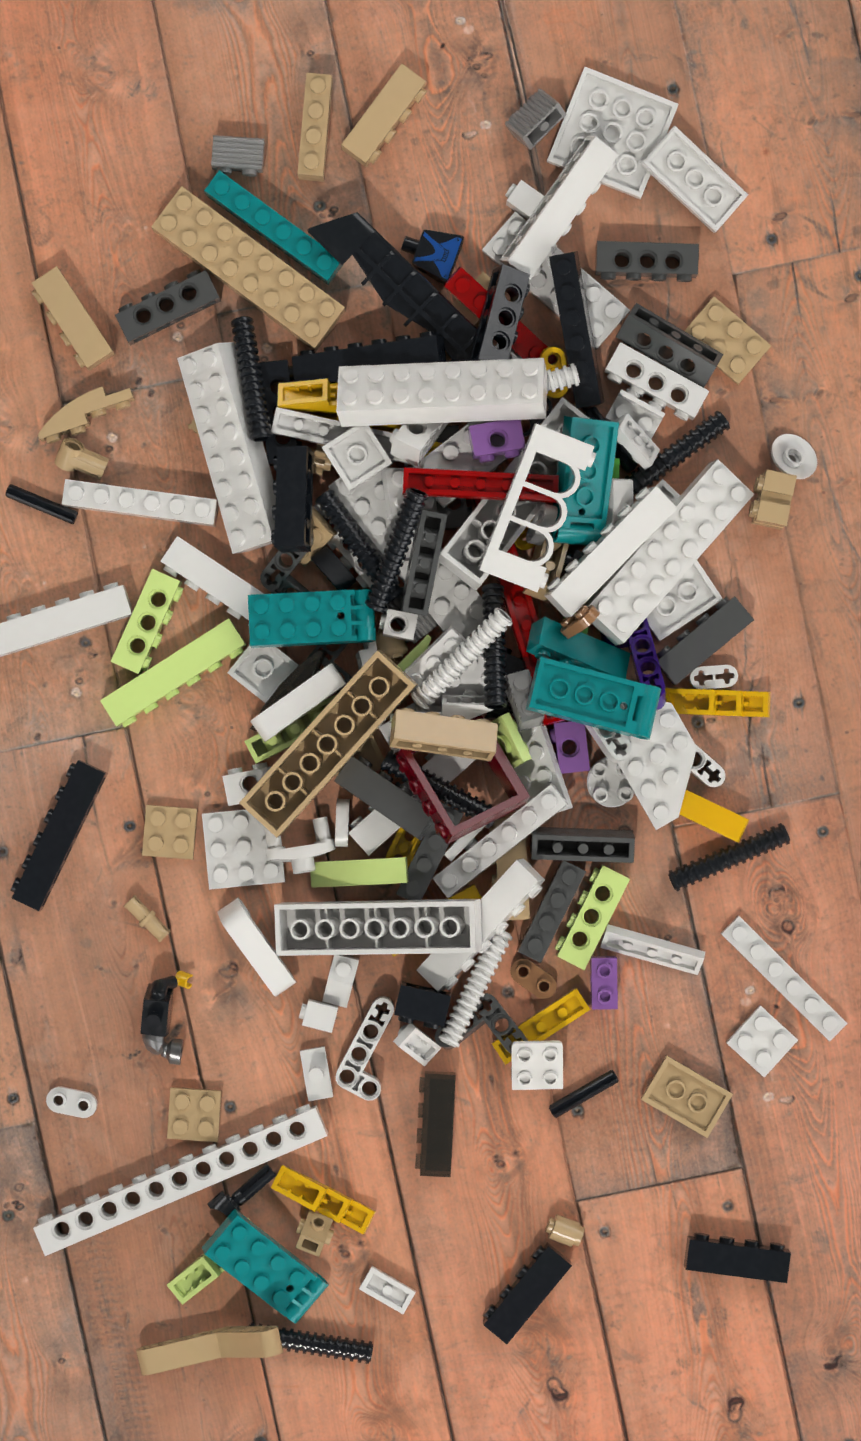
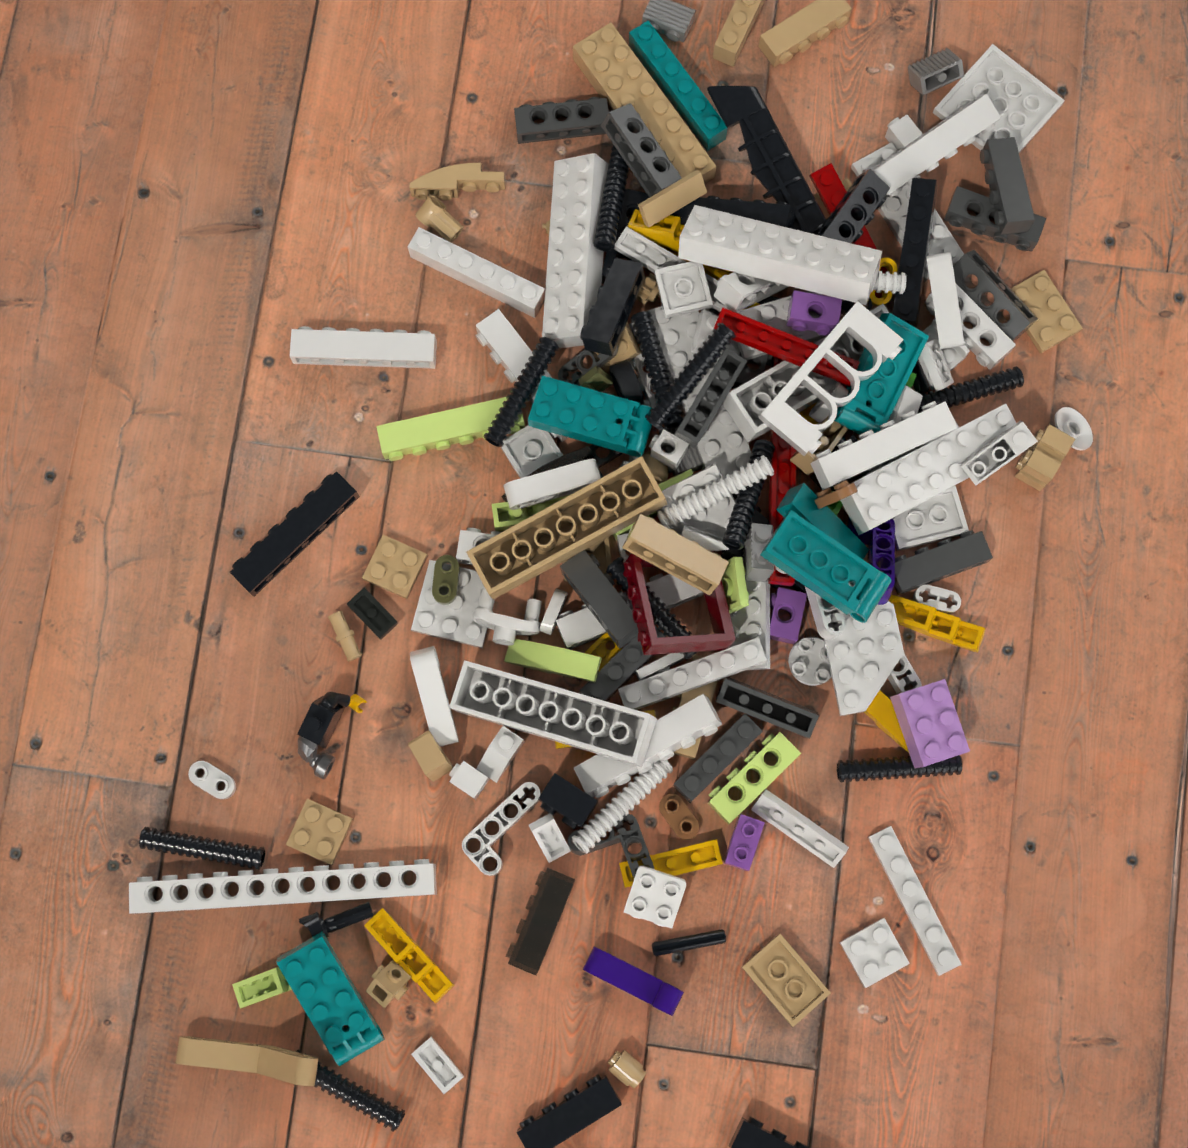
camera: 20 degrees right, 10 degrees down
(41, 504) = (390, 246): black axle -> none
(72, 318) = (477, 103): tan brick -> none
(88, 1170) = (201, 848): none -> black piece
(156, 583) = (463, 345): yellowish green brick -> none
(165, 887) = (372, 613): none -> pearl dark grey plate
(226, 830) = (445, 579): none -> olive plate
(232, 616) = (521, 391): none -> black piece
(267, 336) = (640, 149): none -> dark grey brick
(274, 1007) = (430, 756): none -> tan slope
(302, 577) = (596, 379): none -> olive plate
(313, 364) = (672, 198): none -> tan tile
(316, 1073) = (446, 834): white tile -> none
(434, 253) = (811, 150): torso -> none
(545, 1148) = (633, 980): none -> dark purple beam
(622, 372) = (945, 300): none -> white beam
(647, 226) = (1007, 185): none -> dark grey brick
(694, 179) = (1058, 166): white tile -> none
(726, 516) = (999, 452): none -> white slope
(743, 809) = (930, 724): none -> lavender brick

